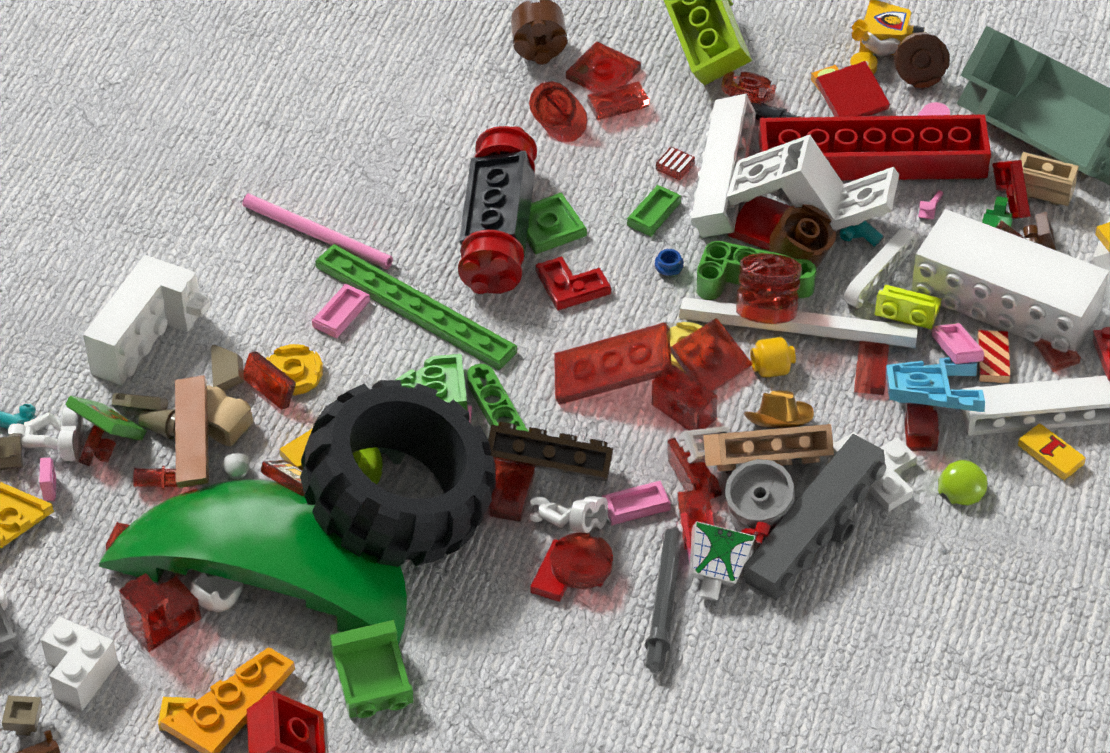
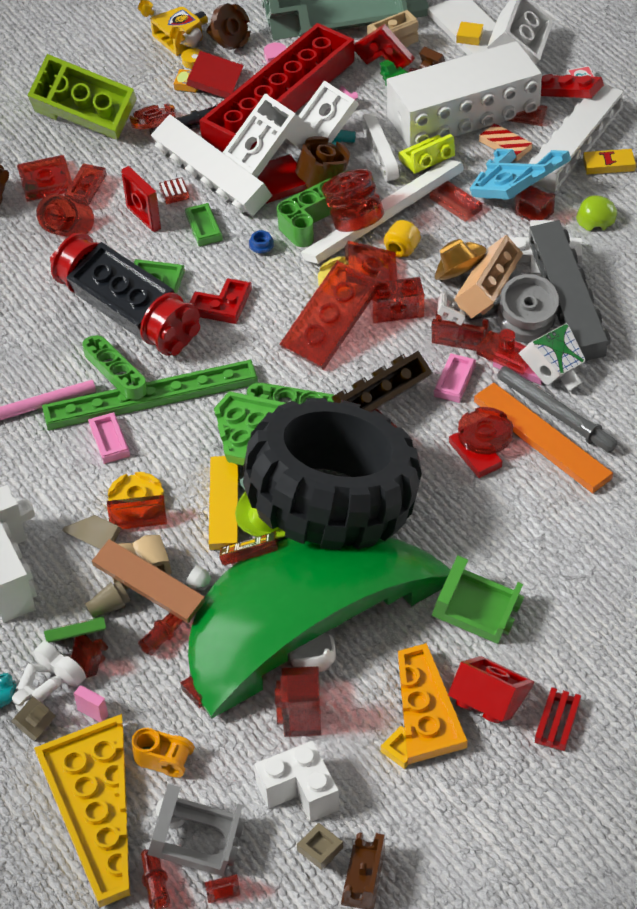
camera: 50 degrees left, 0 degrees up
(36, 552) = (167, 751): none -> light orange piece
(140, 401) = (72, 603): dark tan tile -> none
(415, 260) = (118, 364): none -> bright green beam
(582, 515) = (448, 402): white piece -> none
(620, 611) = (546, 439): none -> orange tile
(625, 146) = (141, 199): none -> red tile
(761, 530) = (560, 319): red piece -> none
(957, 343) = (483, 148): bright pink tile -> none

